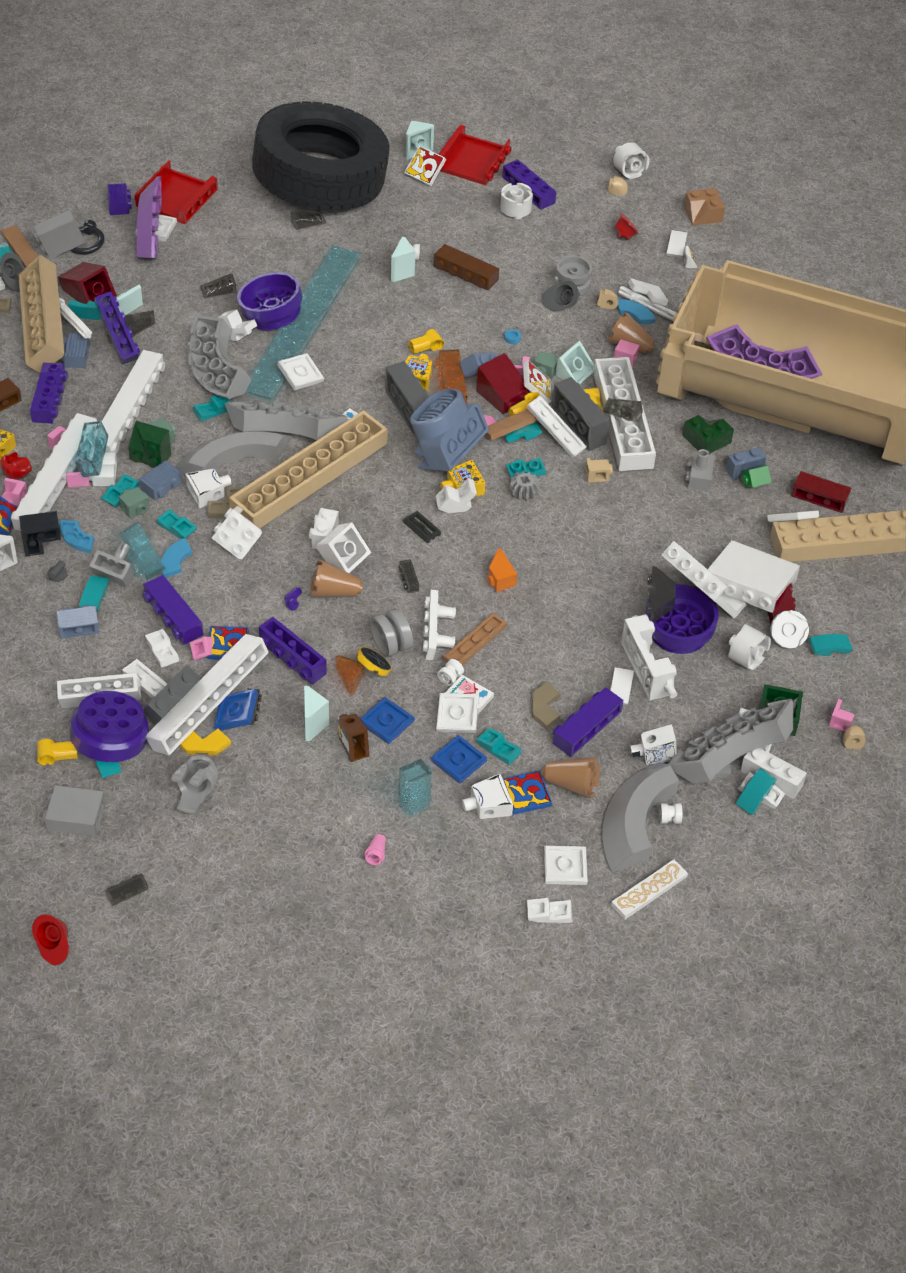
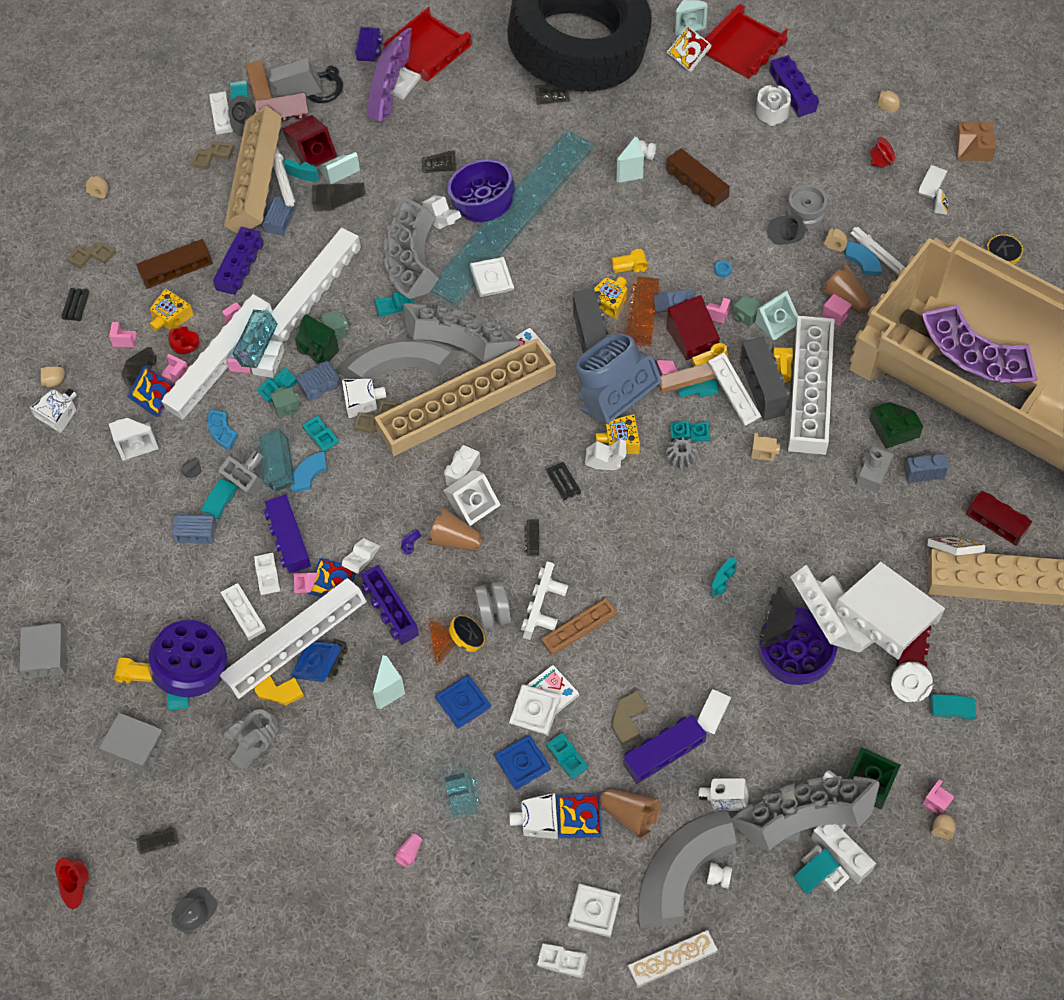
camera: 20 degrees right, 10 degrees up
(38, 529) = (181, 420): black brick -> none
(61, 256) = (286, 105): none -> brick
(73, 691) = (170, 611): white brick -> none
(116, 327) = (319, 200): dark purple brick -> none
(171, 694) = (256, 633): dark grey brick -> none
(181, 942) = (194, 910): none -> dark grey piece
(236, 533) = (371, 458): white bracket -> none
(249, 617) = (361, 556): none -> white slope
(352, 727) = (419, 712): reddish brown torso -> none
(451, 671) = (541, 660): white wheel -> none
(501, 572) = (626, 552): orange slope -> none
(537, 381) = (730, 330): white tile -> none
(595, 577) = (721, 579): none -> teal slope
(629, 409) = (817, 391): clear smoke slope -> none
(630, 160) = (910, 72): white brick -> none
(652, 291) = (887, 238): white tile -> none
(653, 674) = (751, 712): white brick -> none
(749, 647) = (860, 695): white brick -> none
(756, 476) = (931, 487): brick -> none

